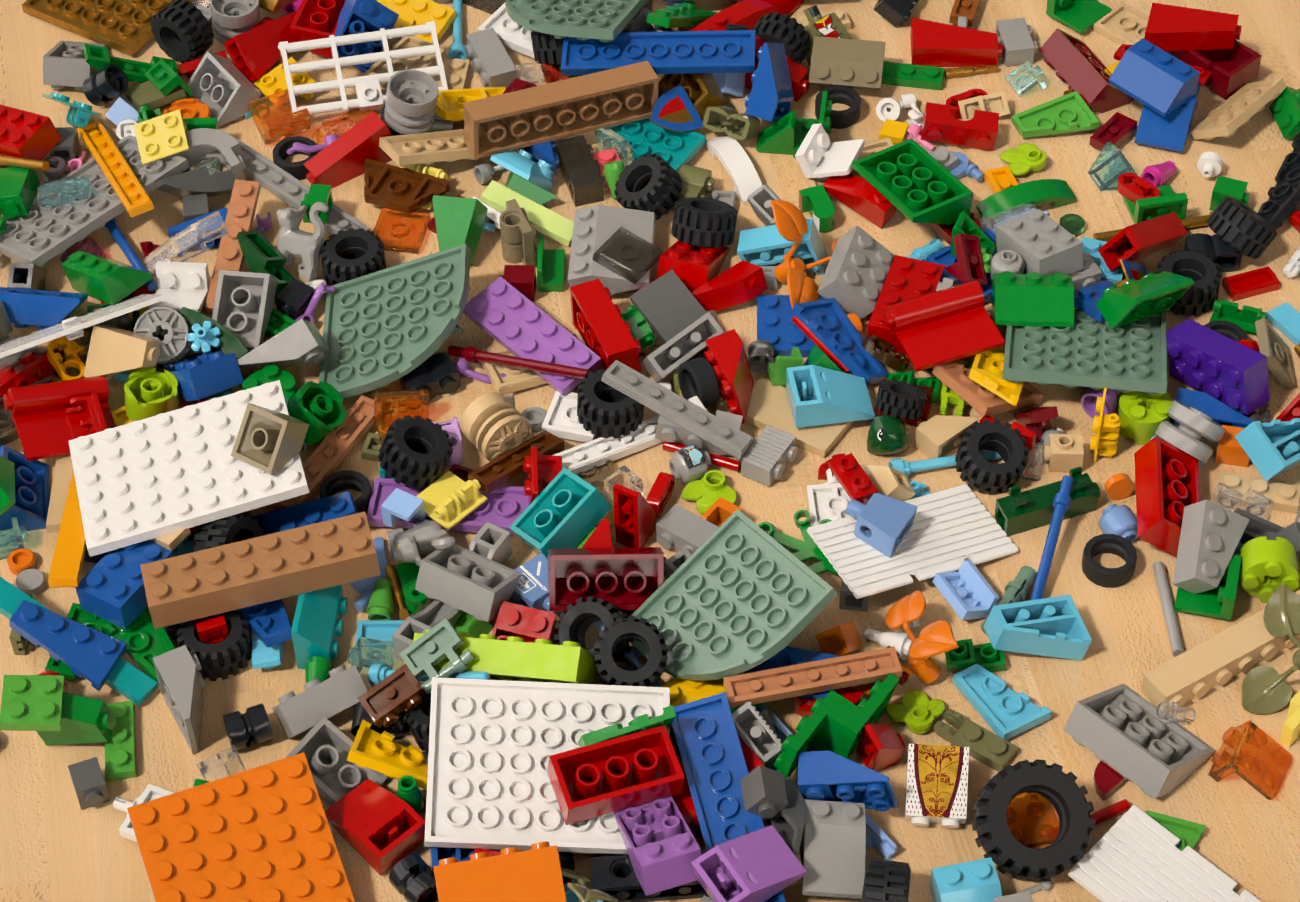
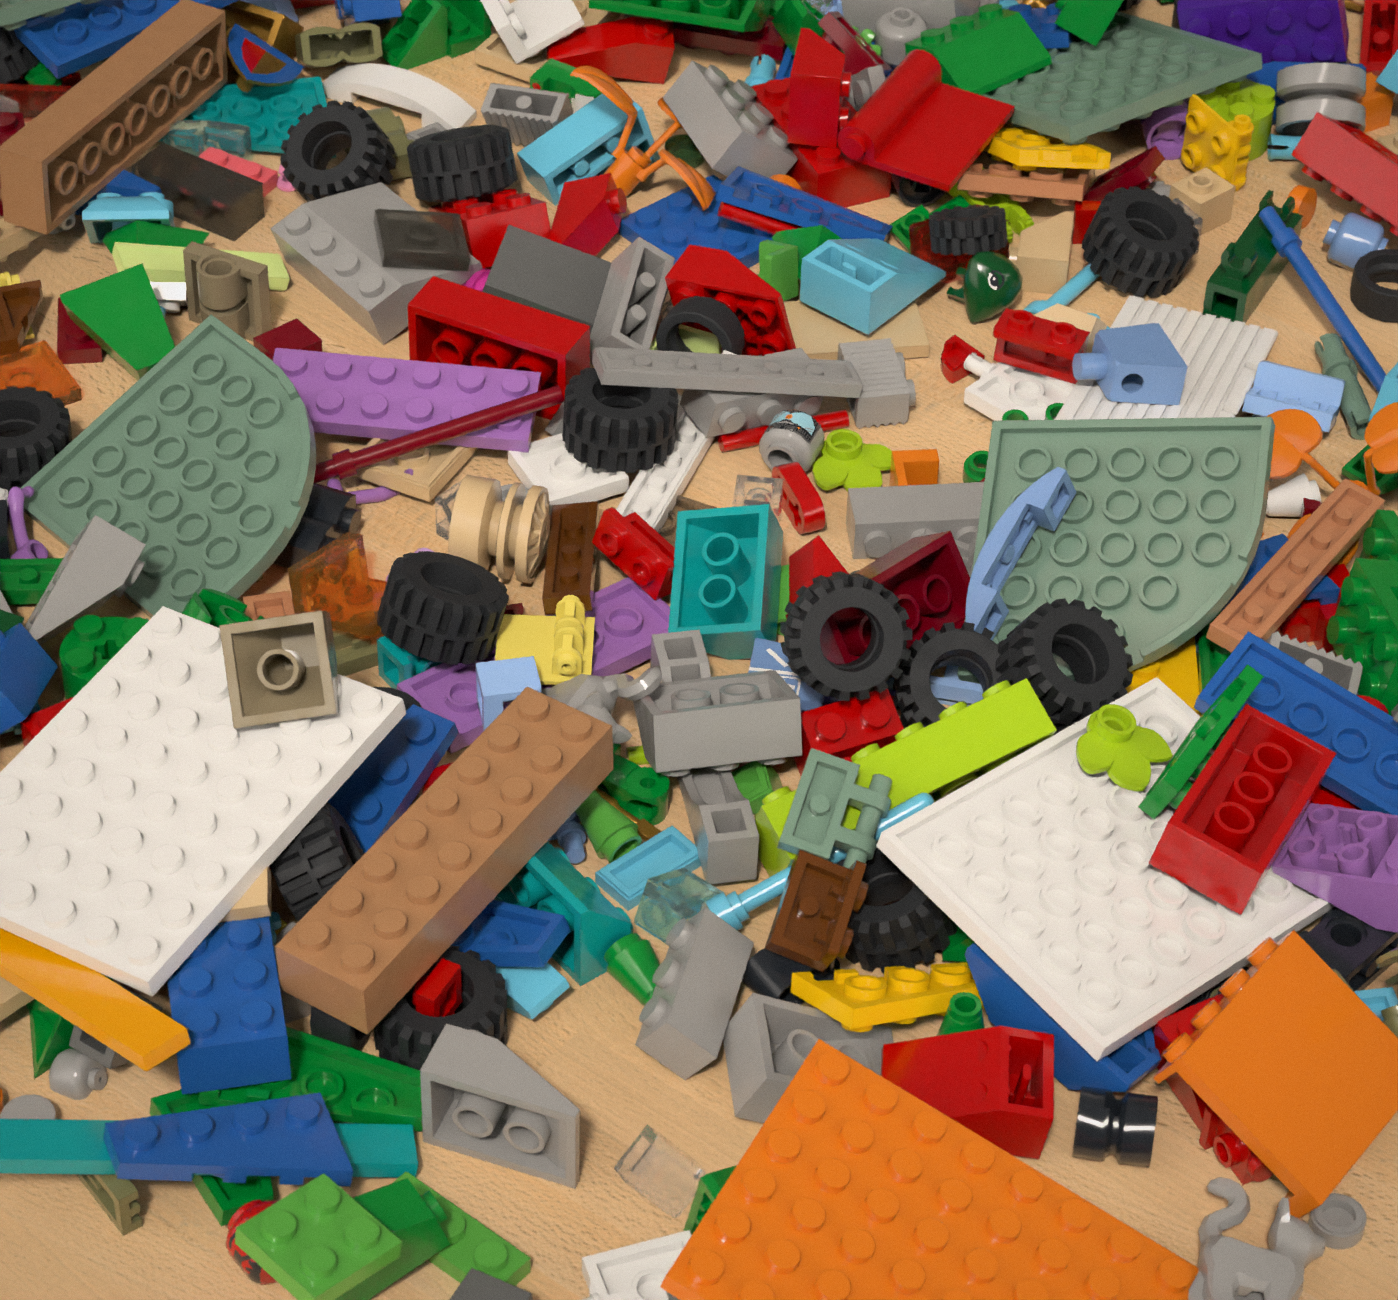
camera: 45 degrees left, 5 degrees down
(248, 727) = (630, 1091): black wheel -> none
(485, 172) = (67, 255): light grey hinge -> none
(524, 580) = (880, 658): none -> black tyre
(550, 268) = (294, 305): green panel -> none
(594, 712) = (1120, 748): none -> lime plate
(611, 172) = (264, 165): bright green cone -> none
(633, 517) = (823, 510): red slope -> none
(673, 579) = (1038, 505): none -> medium blue slope
(885, 352) = (868, 199): dark brown tile -> none
(891, 275) = (817, 92): none -> red slope

